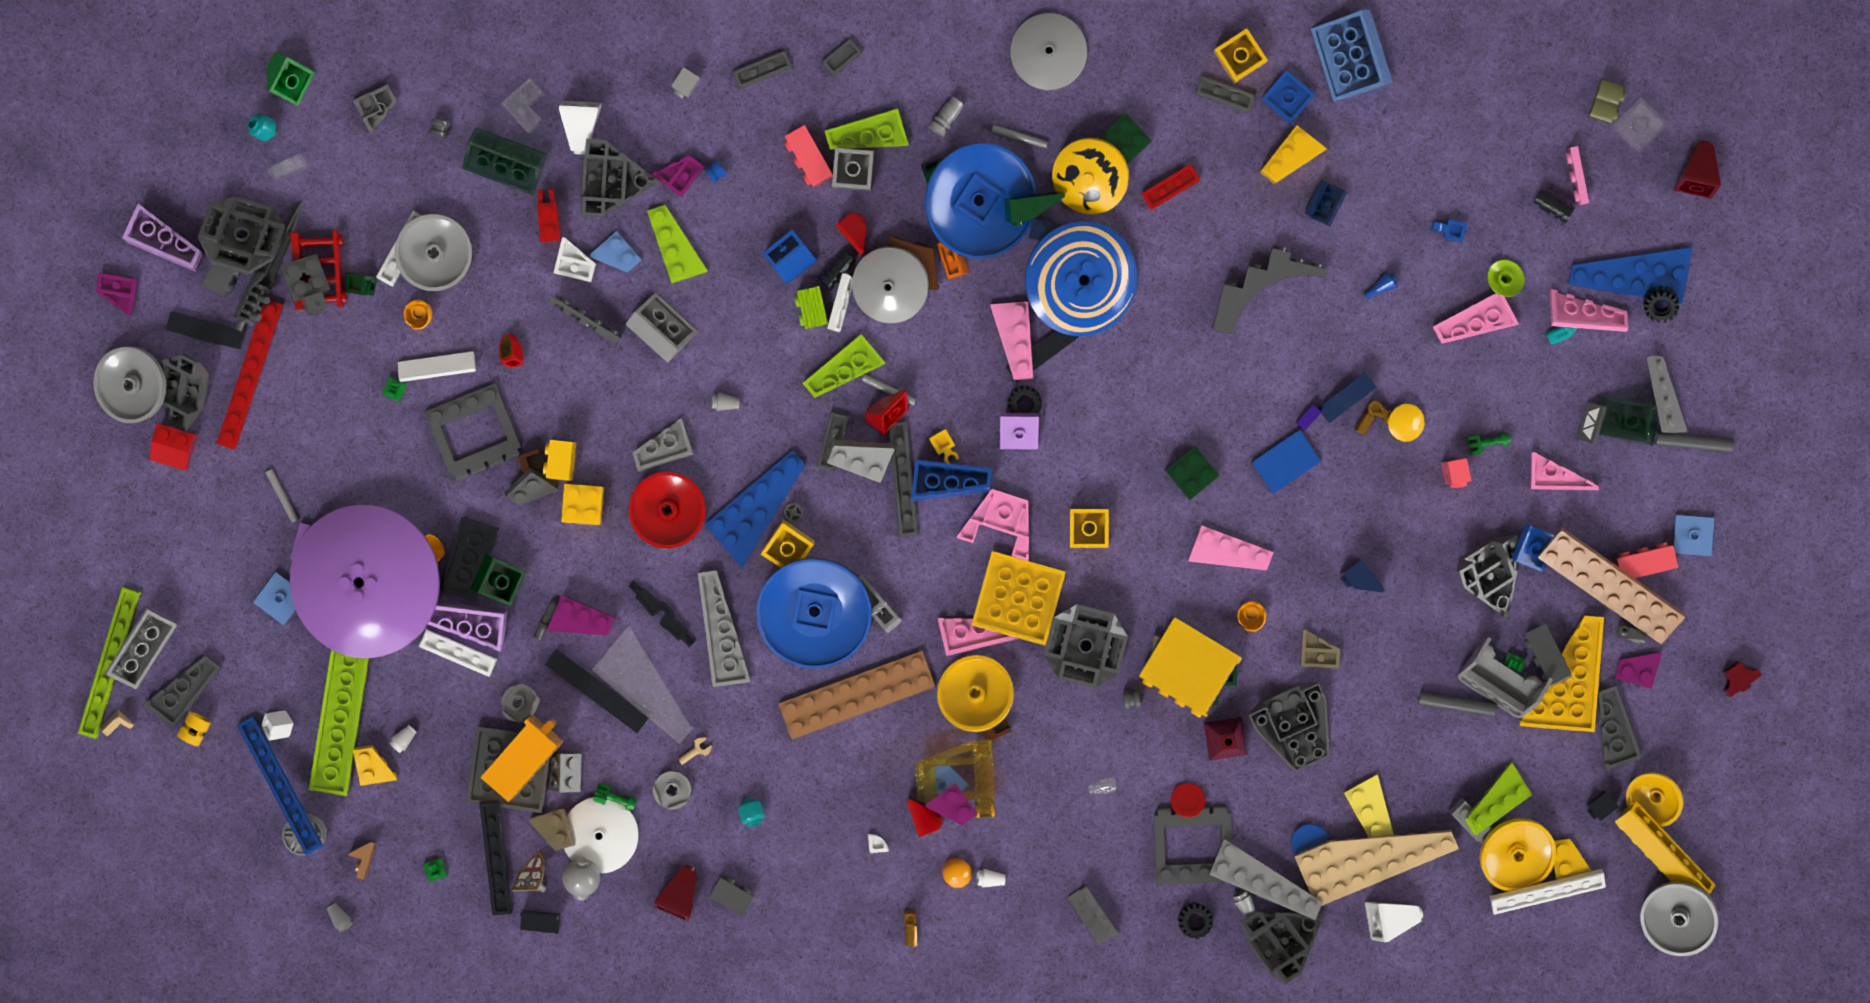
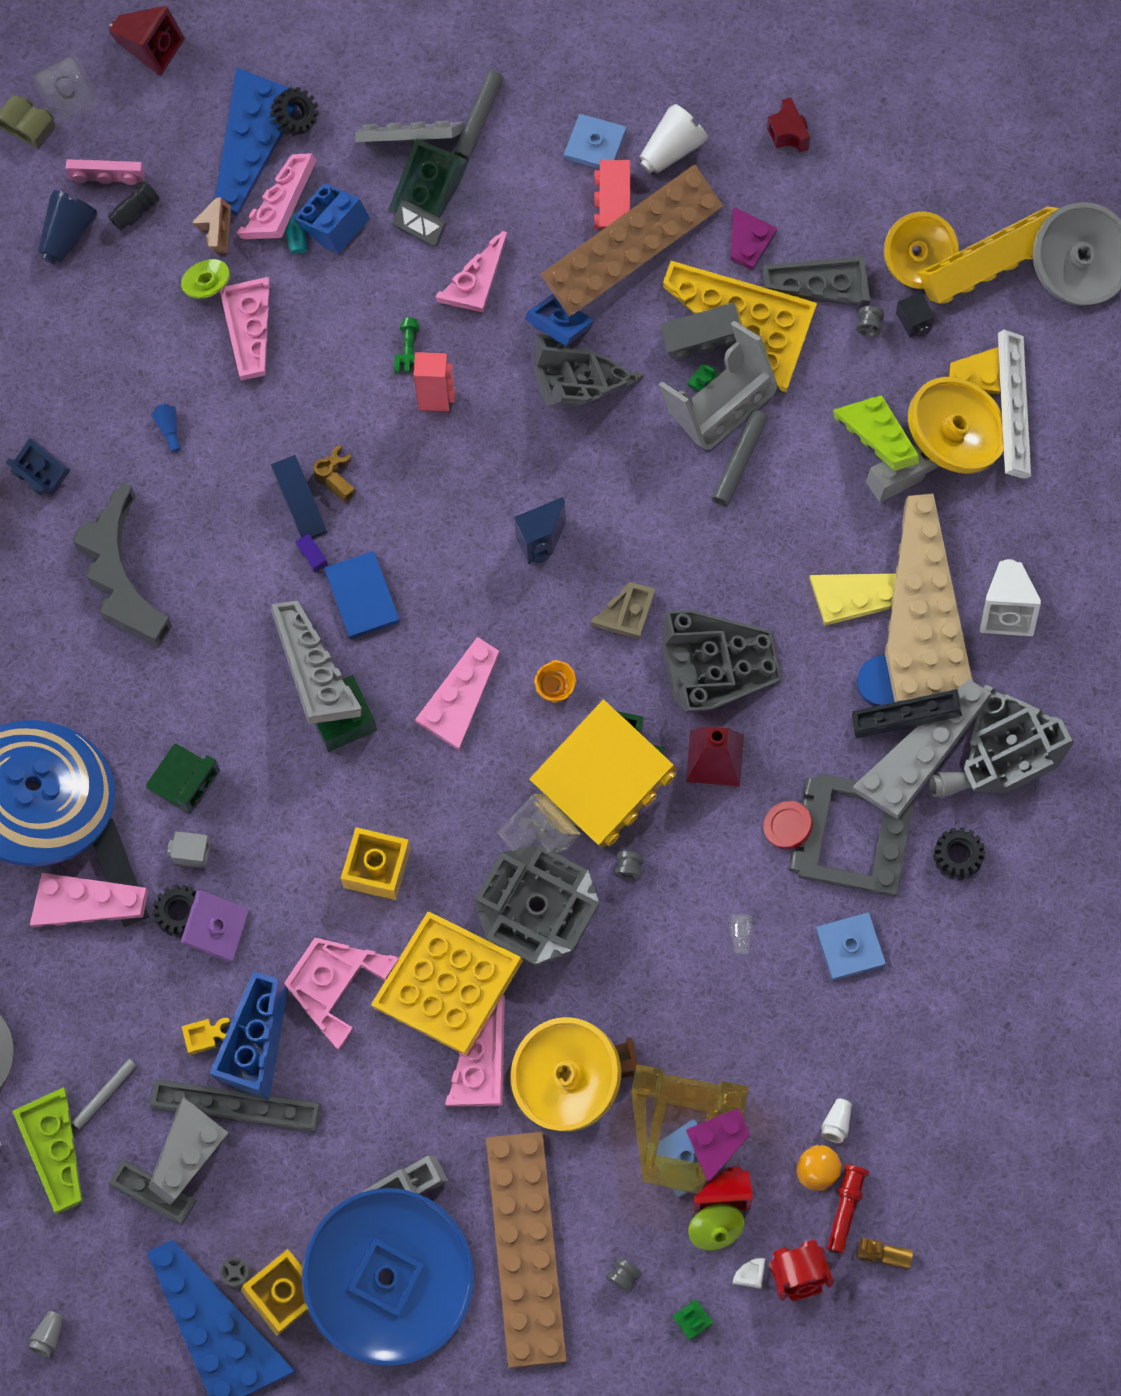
camera: 70 degrees left, 20 degrees down
(838, 813) = (692, 1320): none -> green tile
(854, 763) = (623, 1275): none -> dark grey wheel
(883, 877) = (800, 1271): none -> red brick
(887, 411) = (130, 1099): red slope -> none
(899, 816) = (716, 1227): none -> lime dish
(943, 896) = (849, 1195): none -> red pin
(1068, 397) = (189, 849): none -> light grey brick
(1092, 915) = (921, 990): flat silver panel -> none
(1112, 861) = (850, 946): none -> medium blue plate
(1119, 376) = (183, 778): none -> dark green bracket
(1144, 634) = (539, 821): none -> clear brick
(1207, 453) = (315, 677): none -> light grey wing
(1286, 865) = (907, 713): none -> black tile
(1406, 422) = (353, 436): yellow dish -> none
(1452, 229) = (123, 327): blue plate -> none
(1522, 160) = (64, 225): none -> dark blue cone
(1556, 273) = (217, 222): none -> medium nougat slope
(1579, 357) = (332, 217): none -> blue slope
(1589, 774) = (870, 321): none -> dark grey wheel
(1633, 635) = (702, 234): dark grey arm -> none
(1703, 593) = (672, 140): none -> white cone

